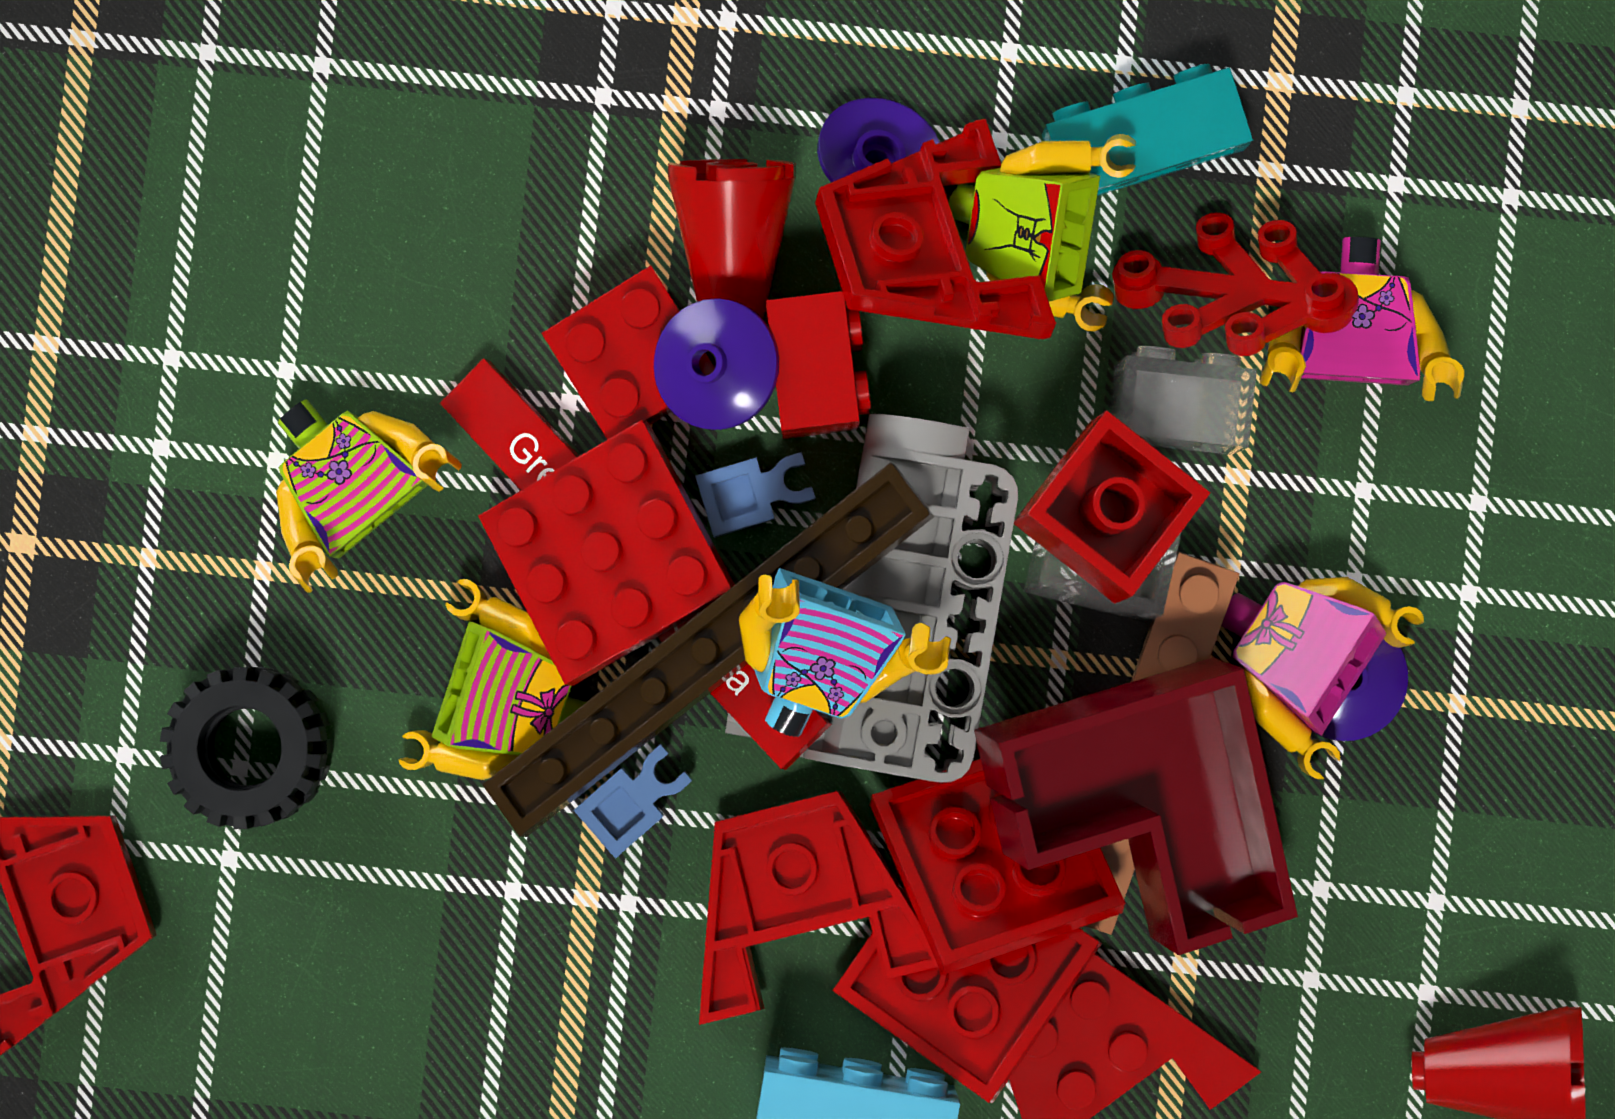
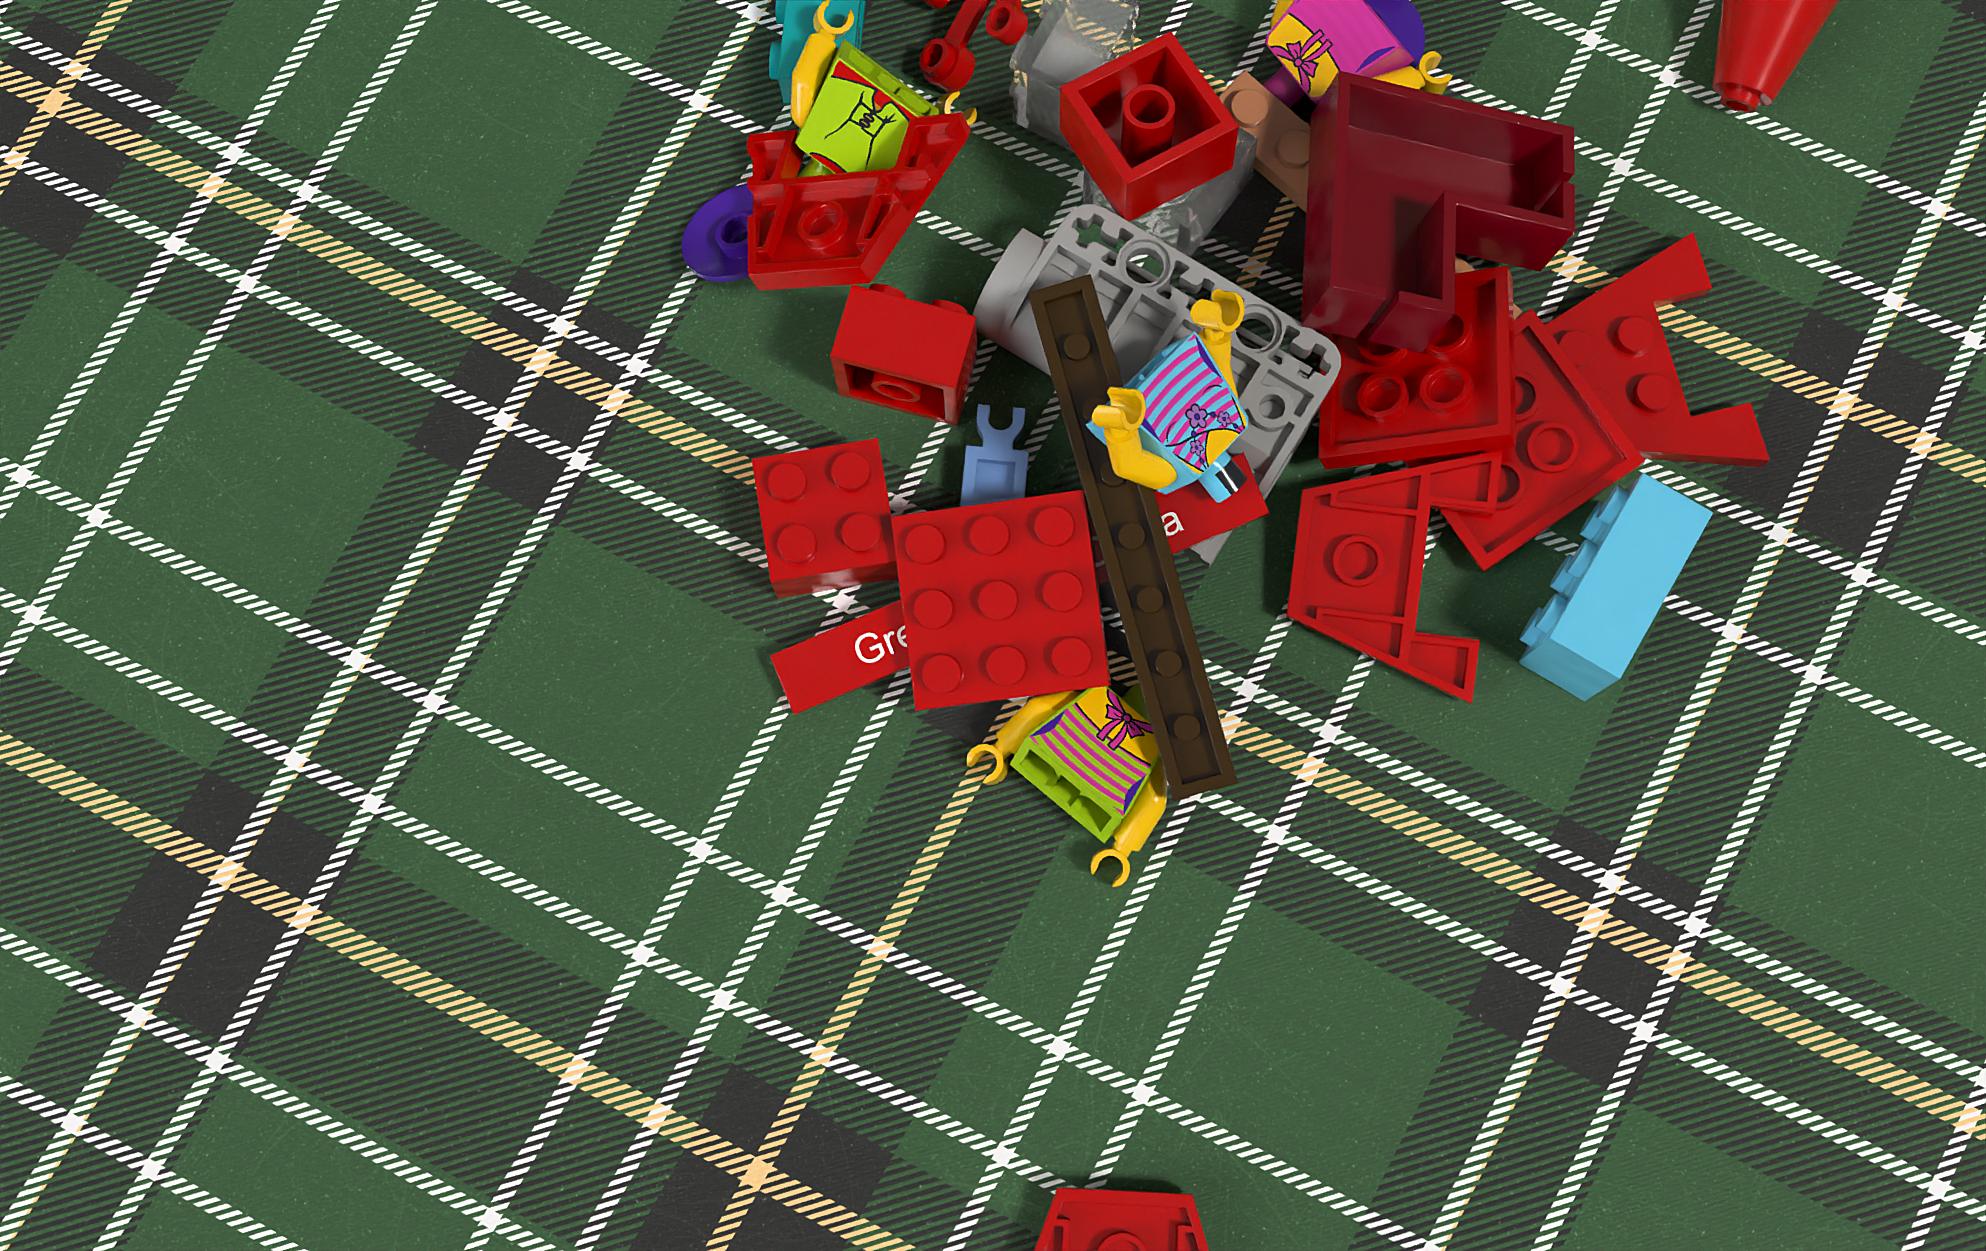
camera: 70 degrees left, 10 degrees down
(192, 747) = (1104, 1023): black tyre -> none
(347, 481) = (830, 823): torso -> none
(625, 806) = (1240, 689): medium blue plate -> none
(732, 225) = (754, 383): red cone -> none
(743, 371) = (901, 417): dark purple dish -> none

